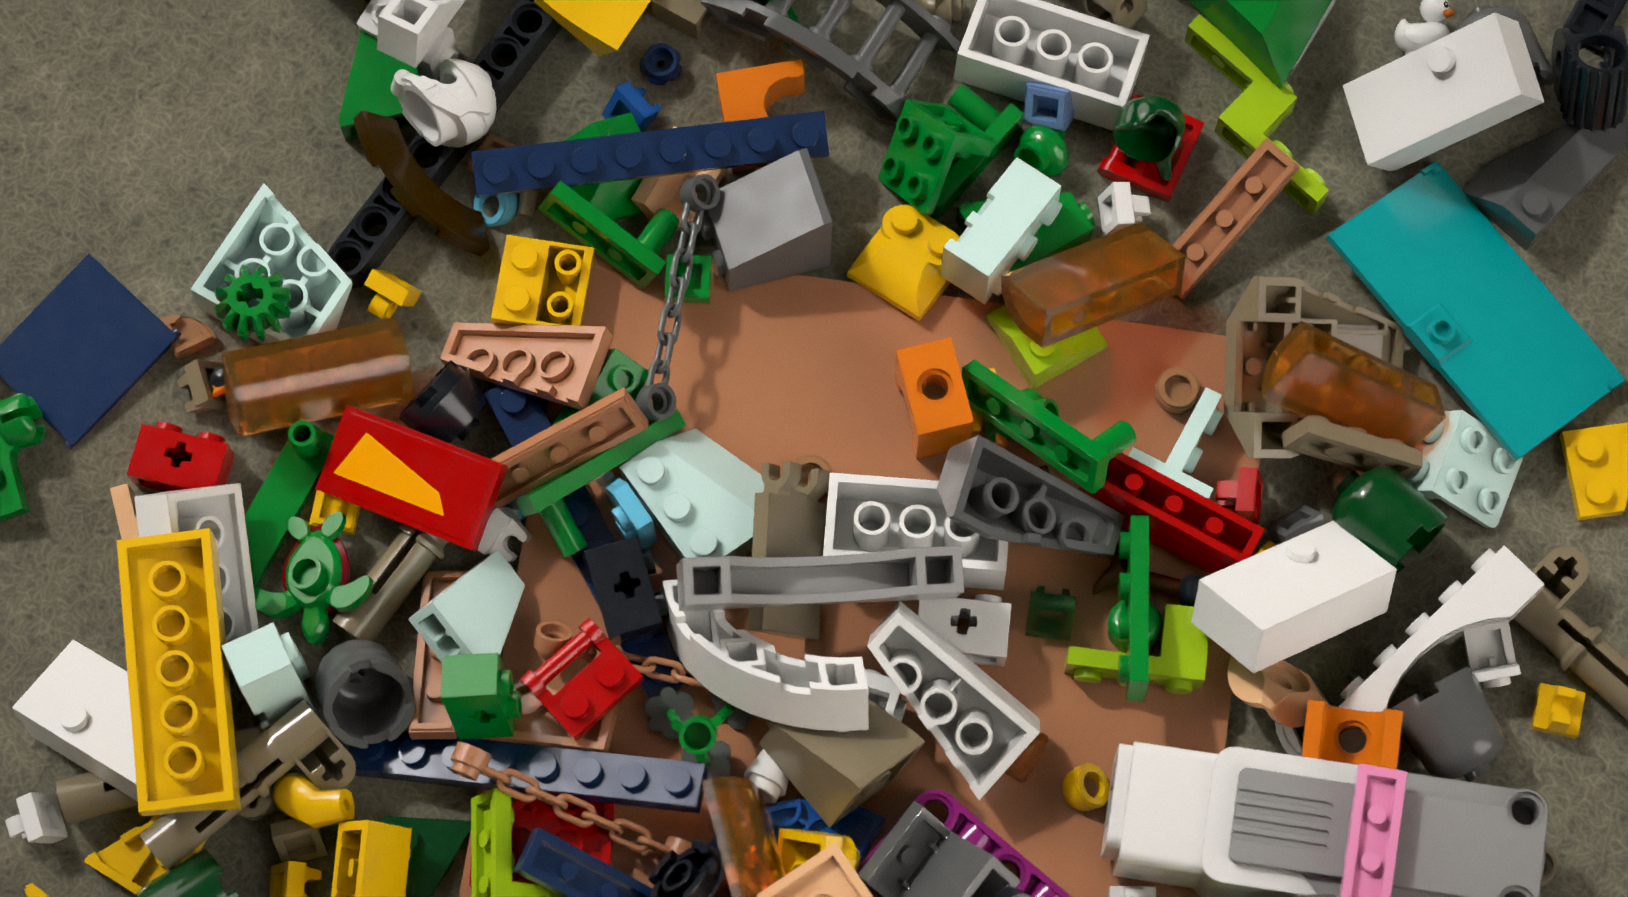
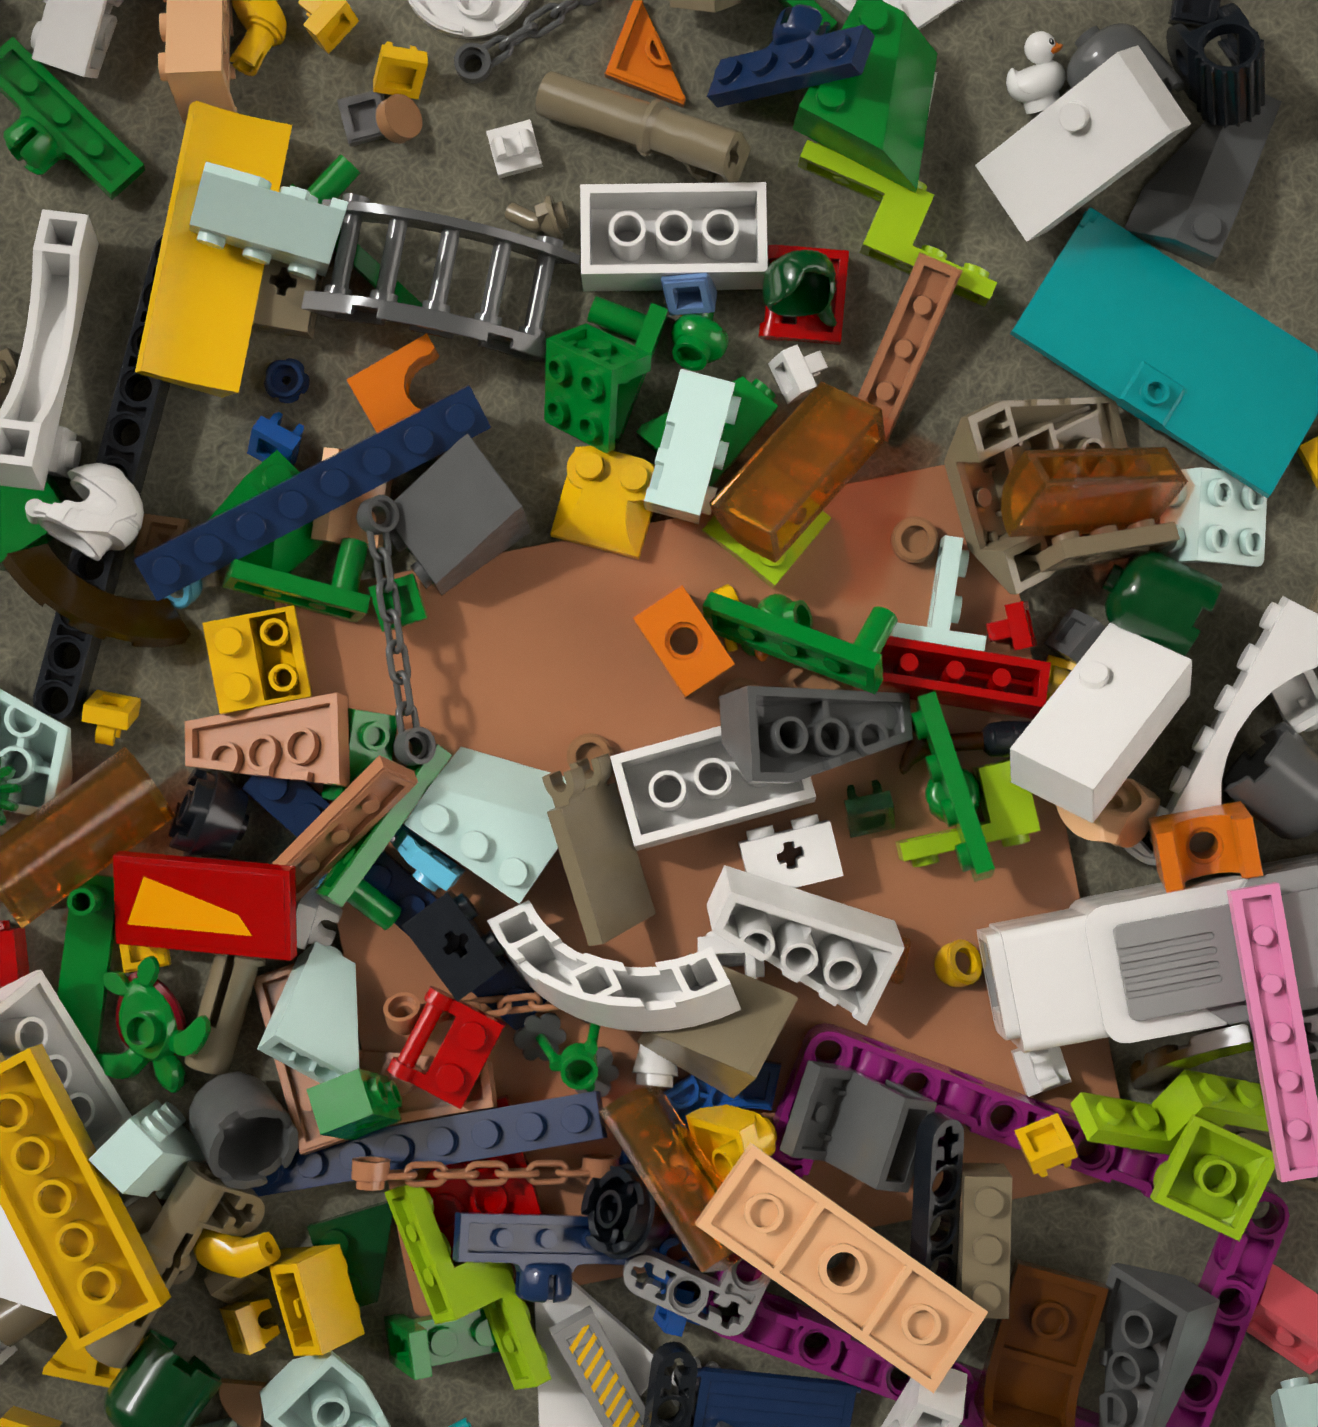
camera: 25 degrees left, 15 degrees up
(819, 580) = (694, 857): light grey arch -> none

